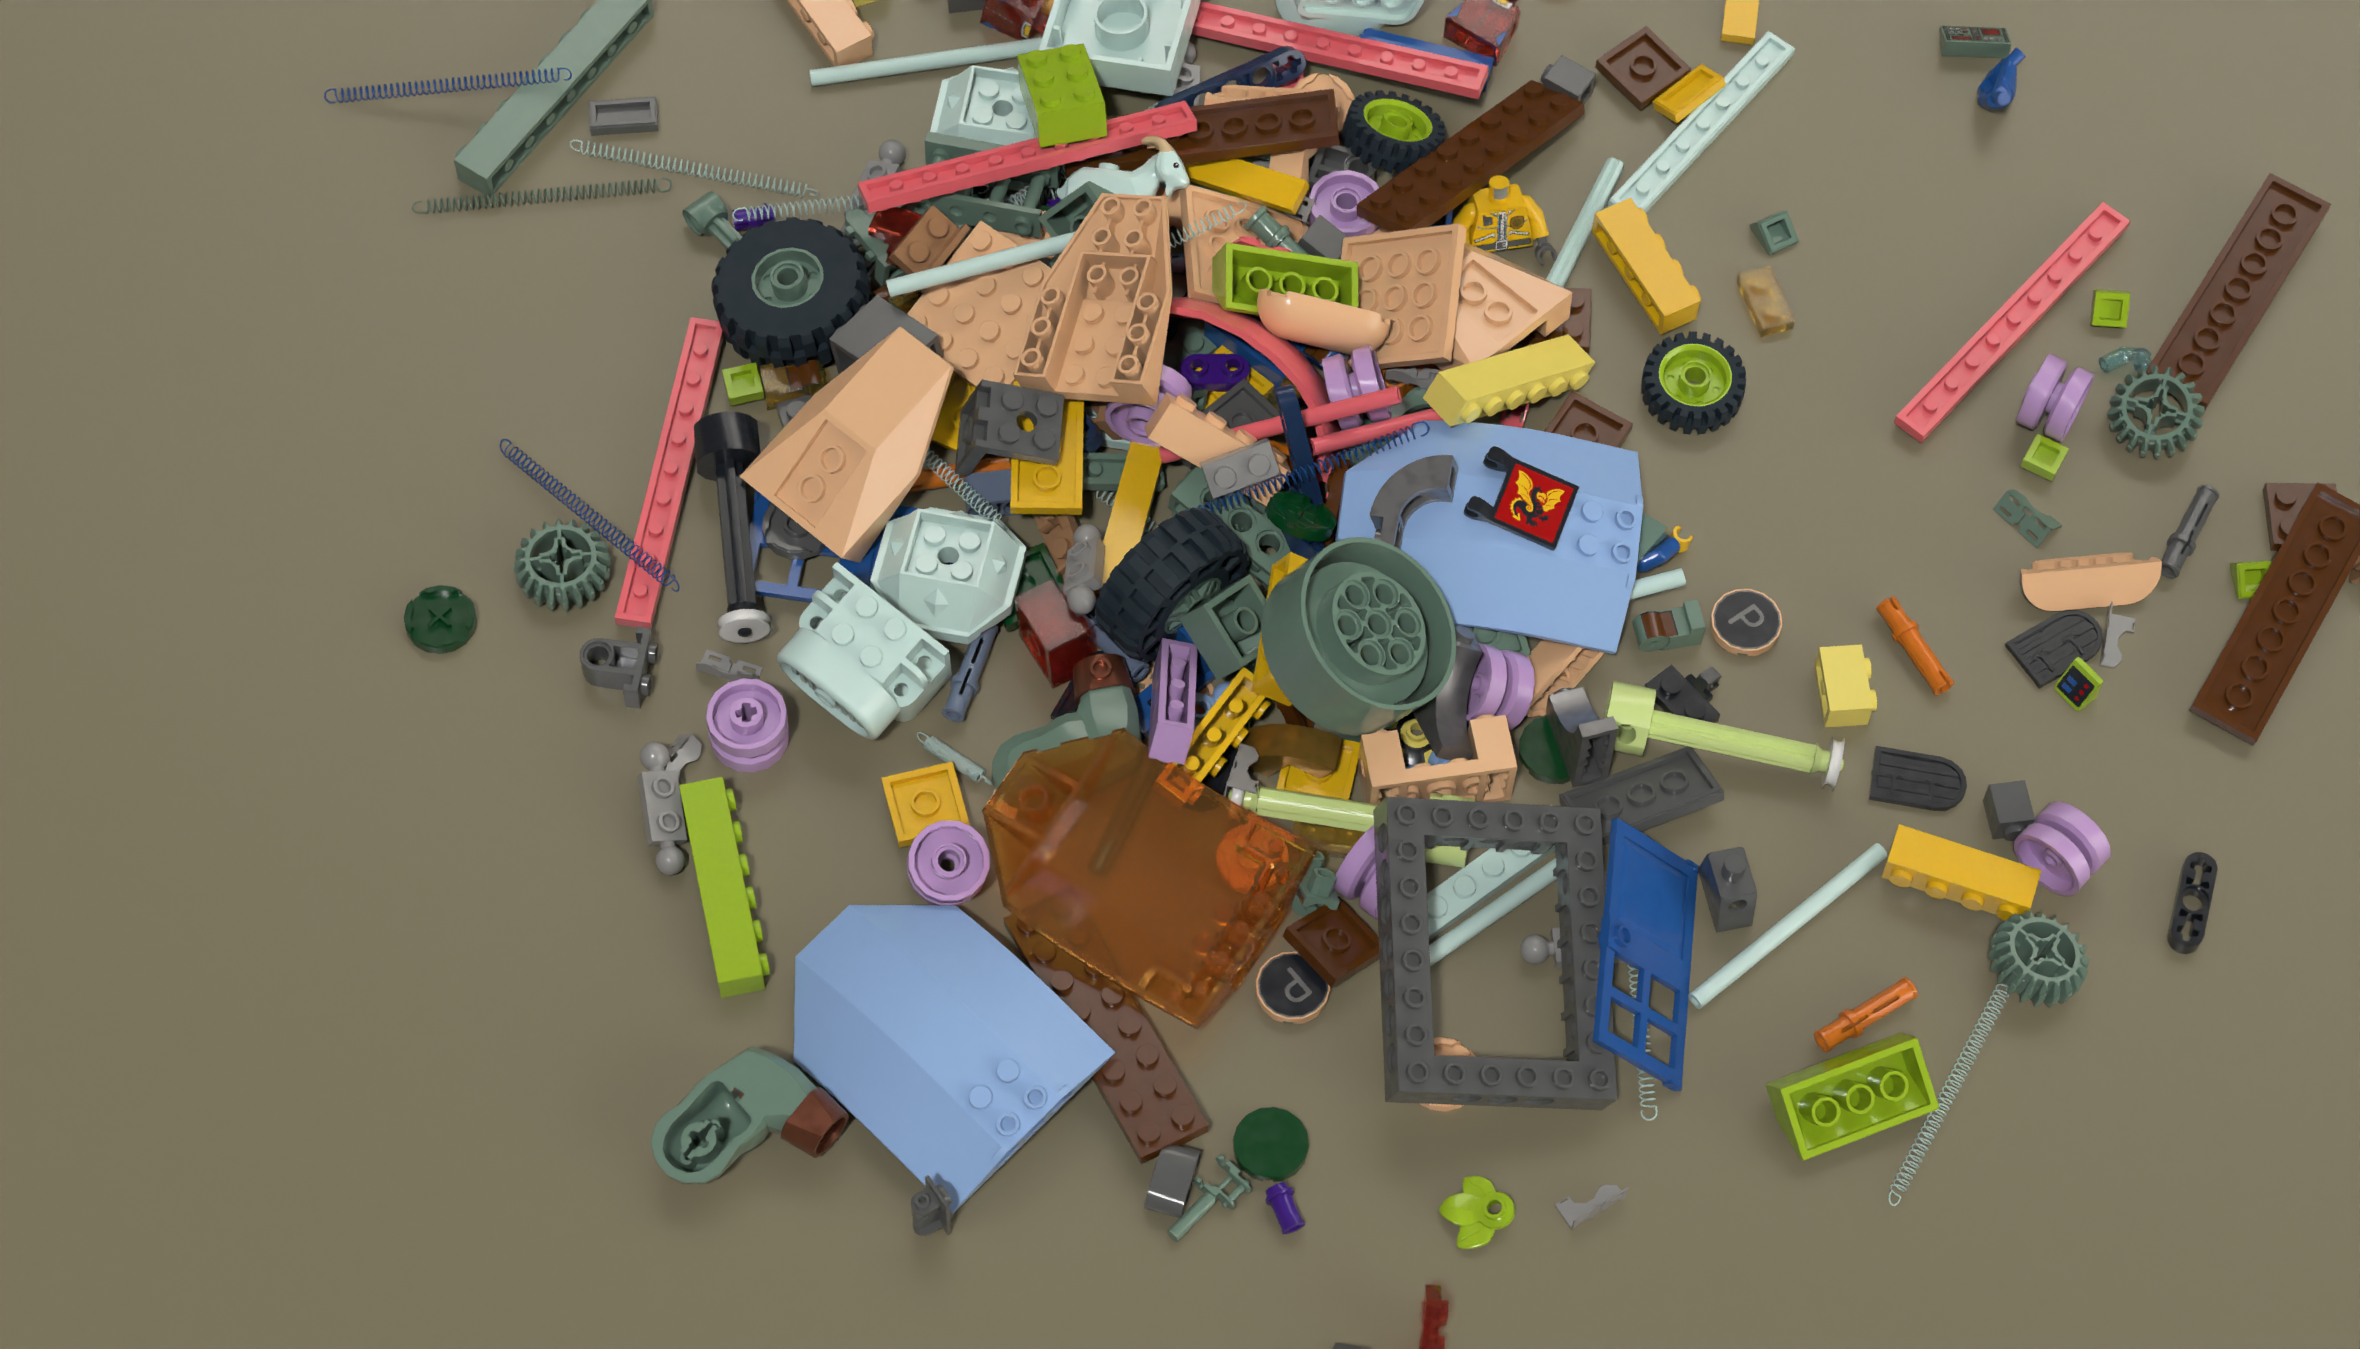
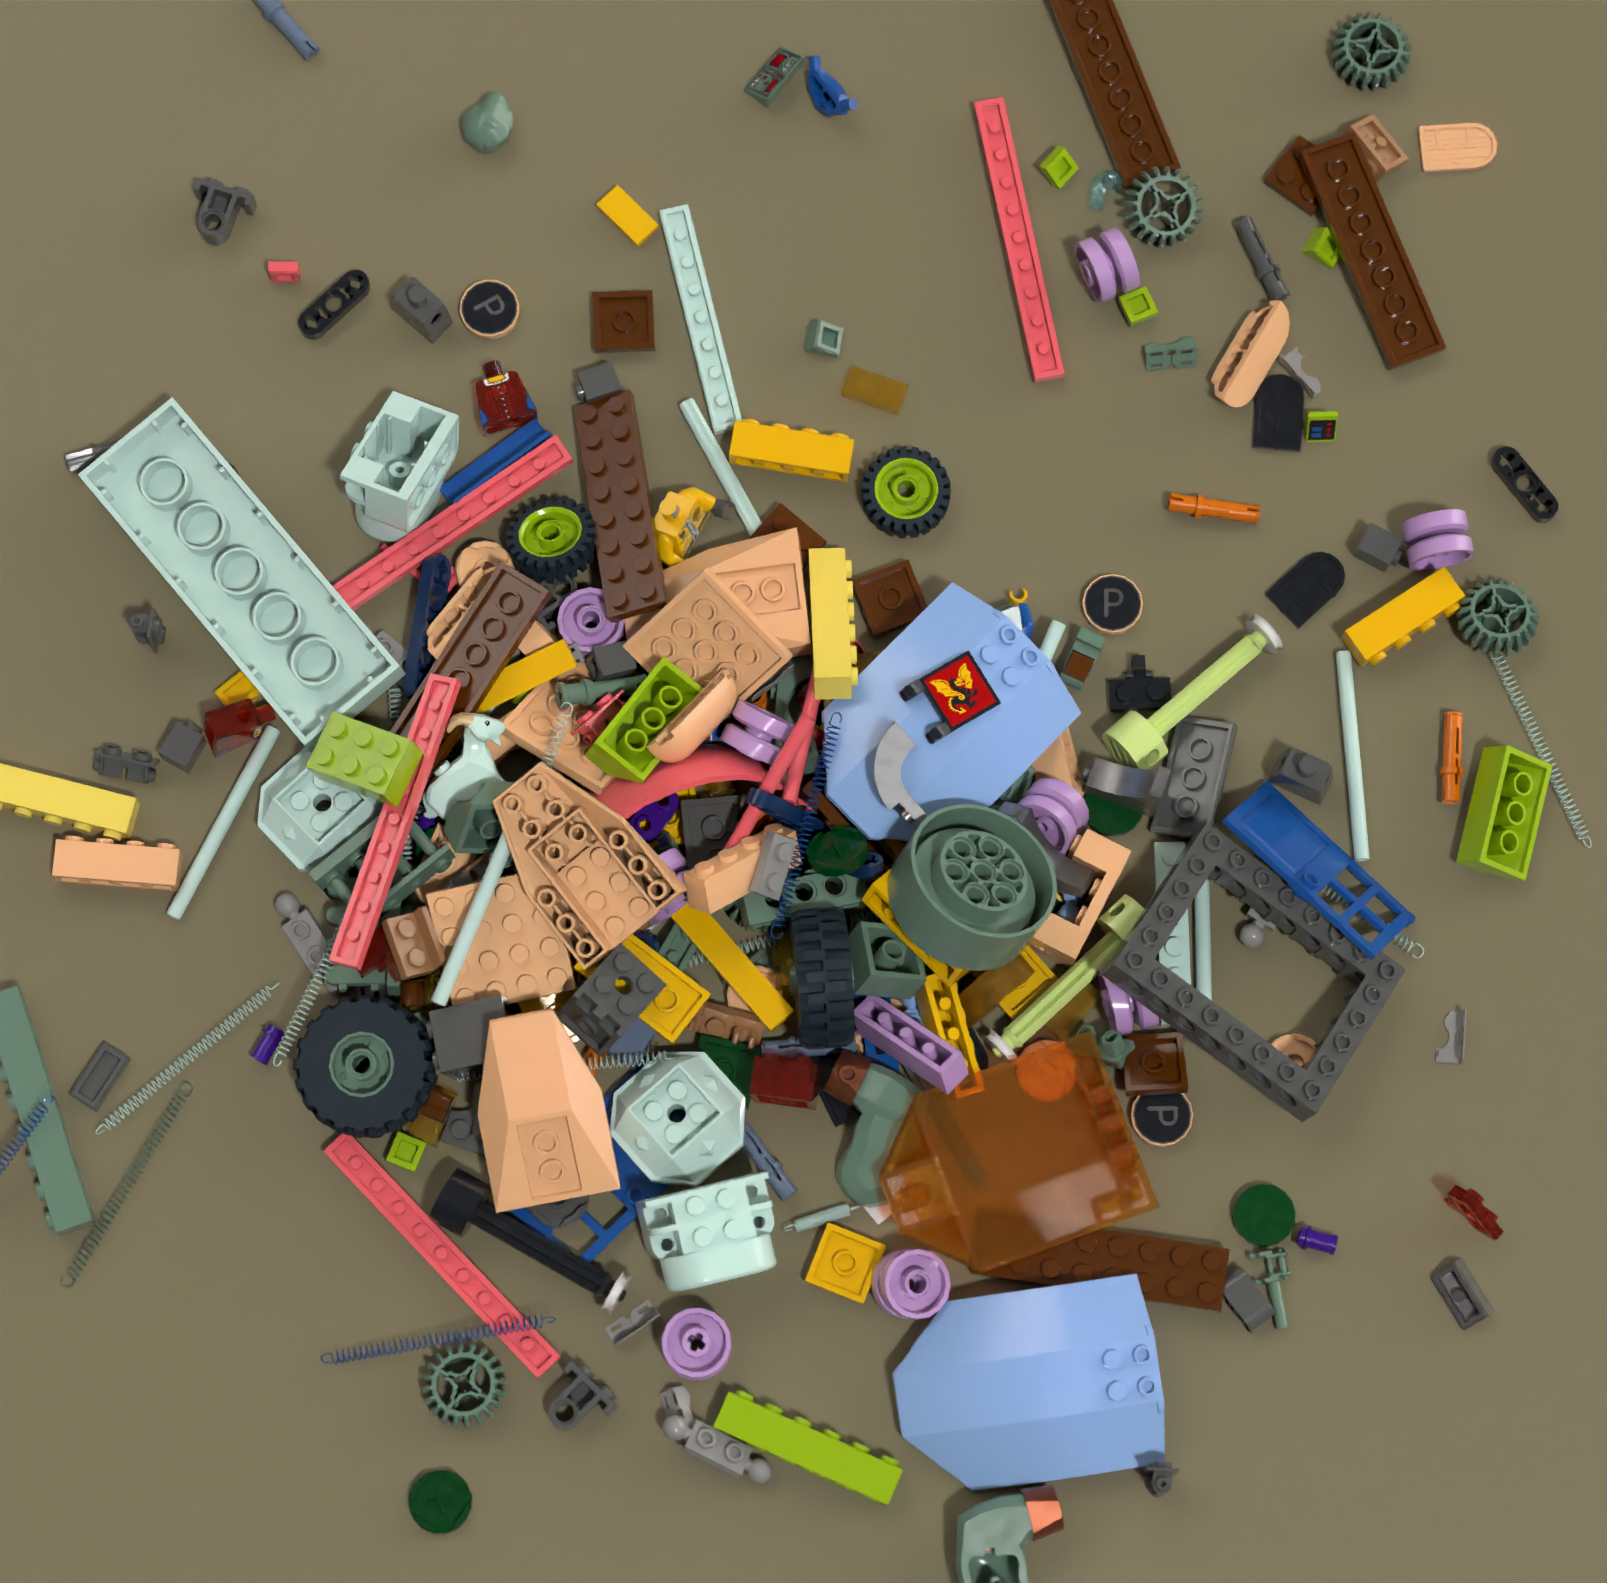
camera: 55 degrees left, 15 degrees up
(710, 217) = (242, 1077): sand green axle -> none
(1084, 569) = (758, 1027): light grey plate -> none
(1239, 776) = (998, 1040): light grey piece -> none
(1472, 1213) = (1404, 1119): lime plate -> none
(1689, 93) = (669, 307): yellow tile -> none
(1844, 685) = (1210, 579): light yellow brick -> none

